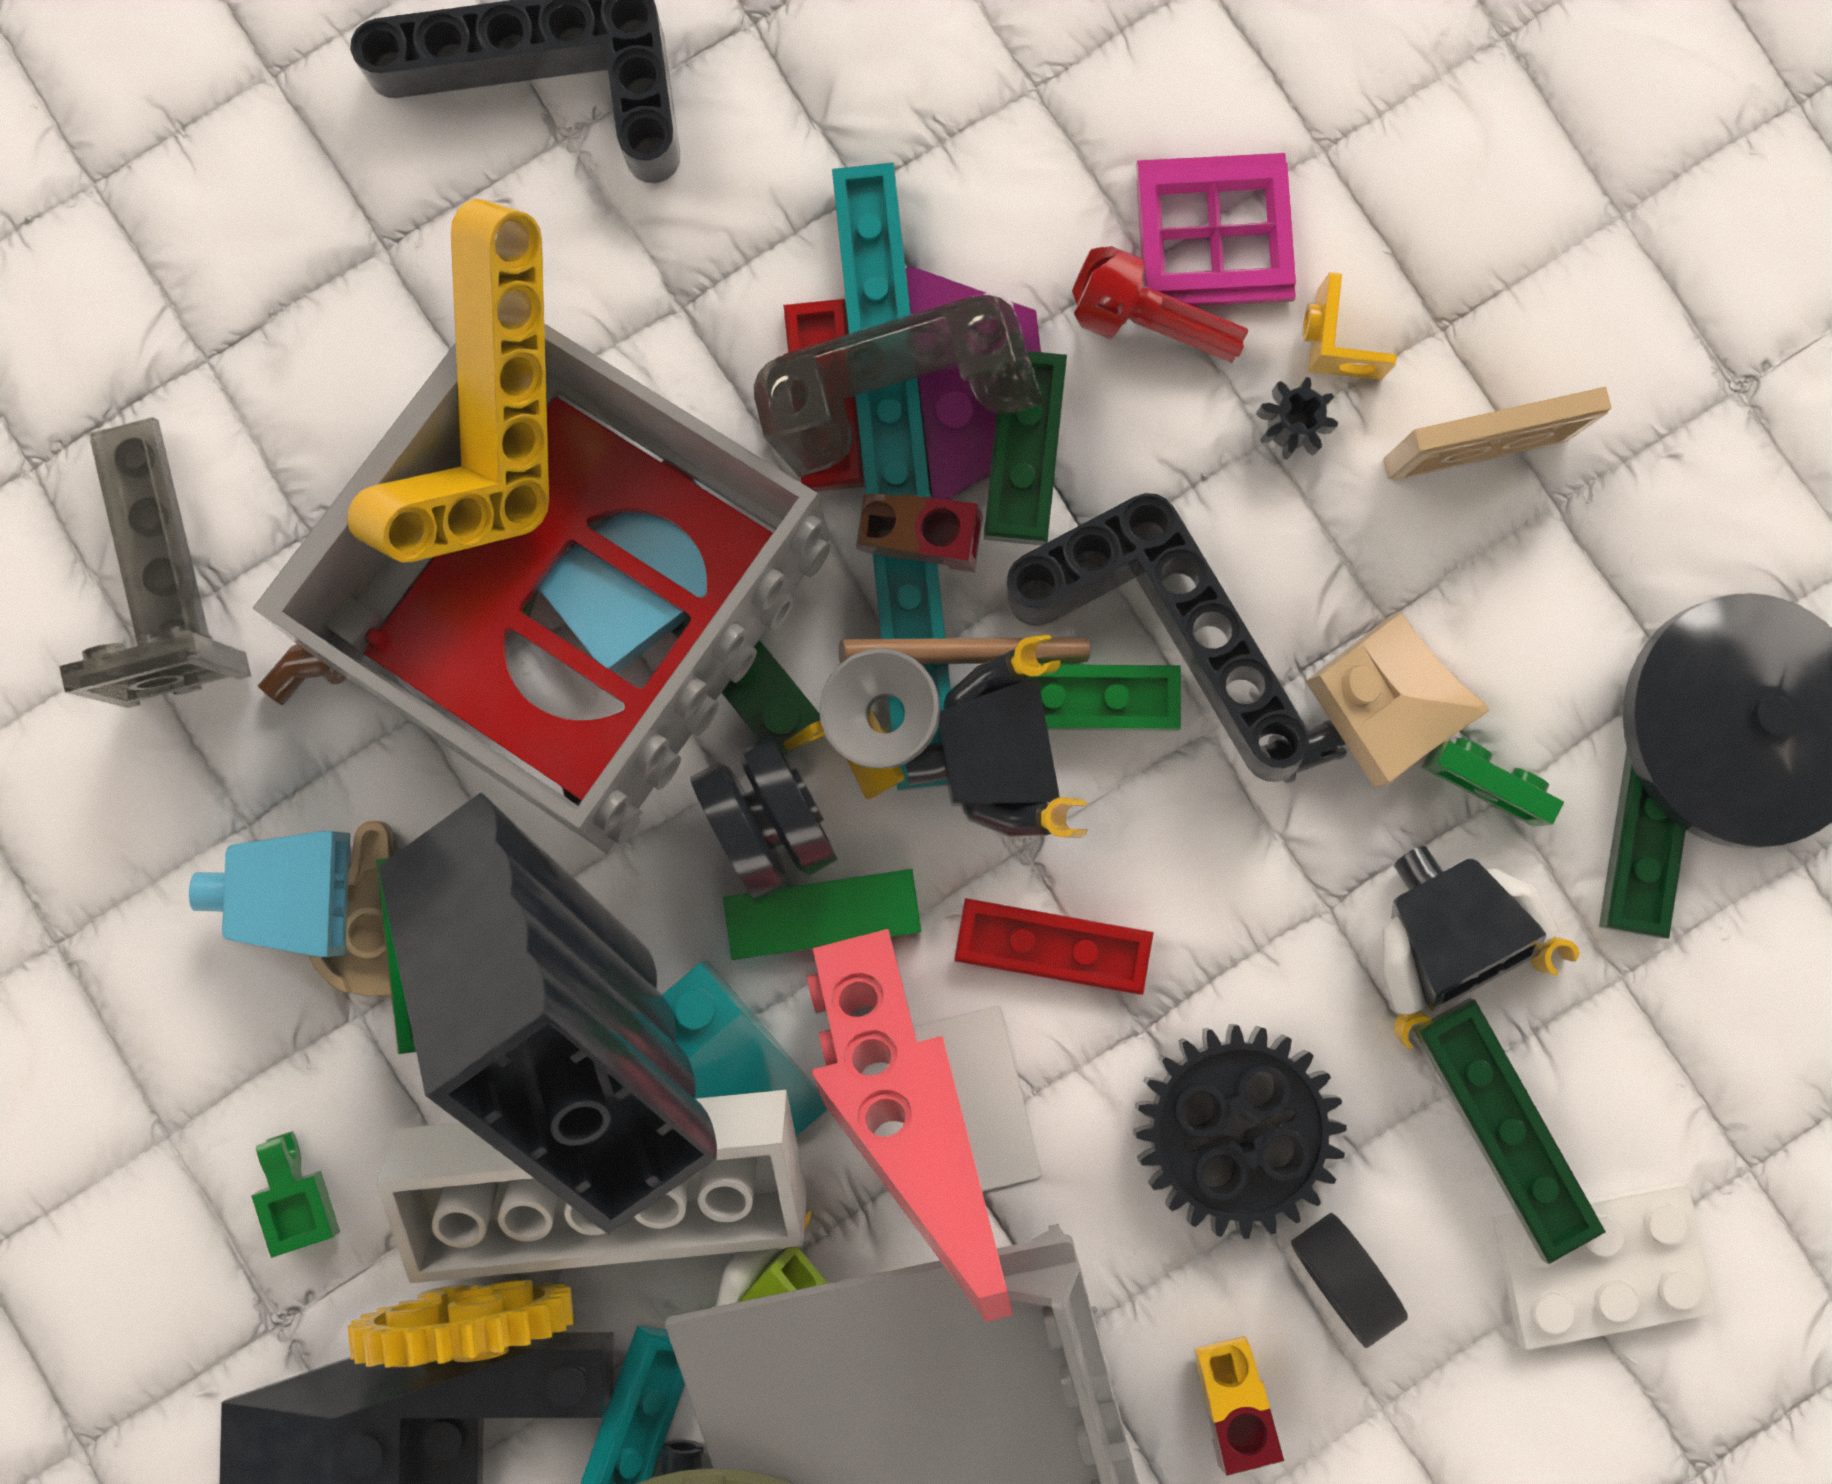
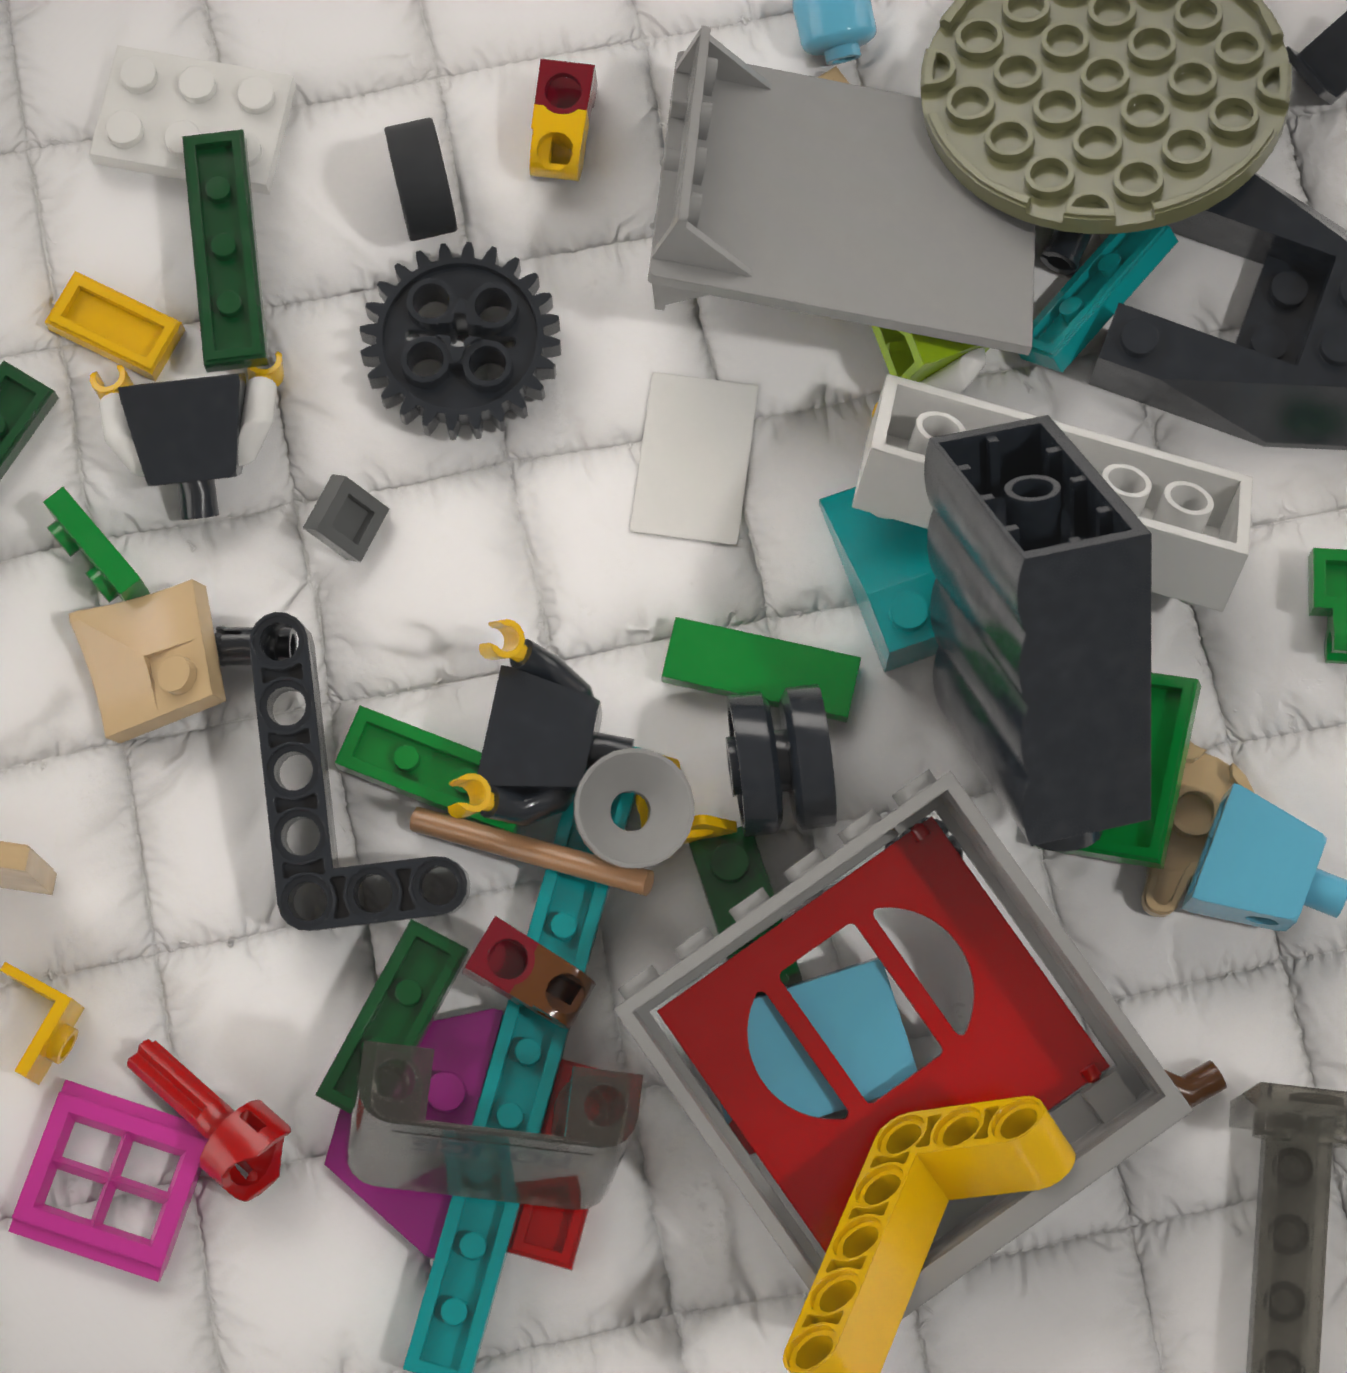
camera: 155 degrees left, 10 degrees down
(460, 1323) = (1214, 417): yellow gear -> none
(930, 1158) = (743, 388): coral brick -> none
(1053, 946) = (559, 562): red tile -> none
(1272, 906) = (346, 518): none -> dark grey plate
(1296, 401) = (134, 965): black gear -> none
(1579, 1018) = (115, 326): none -> yellow tile

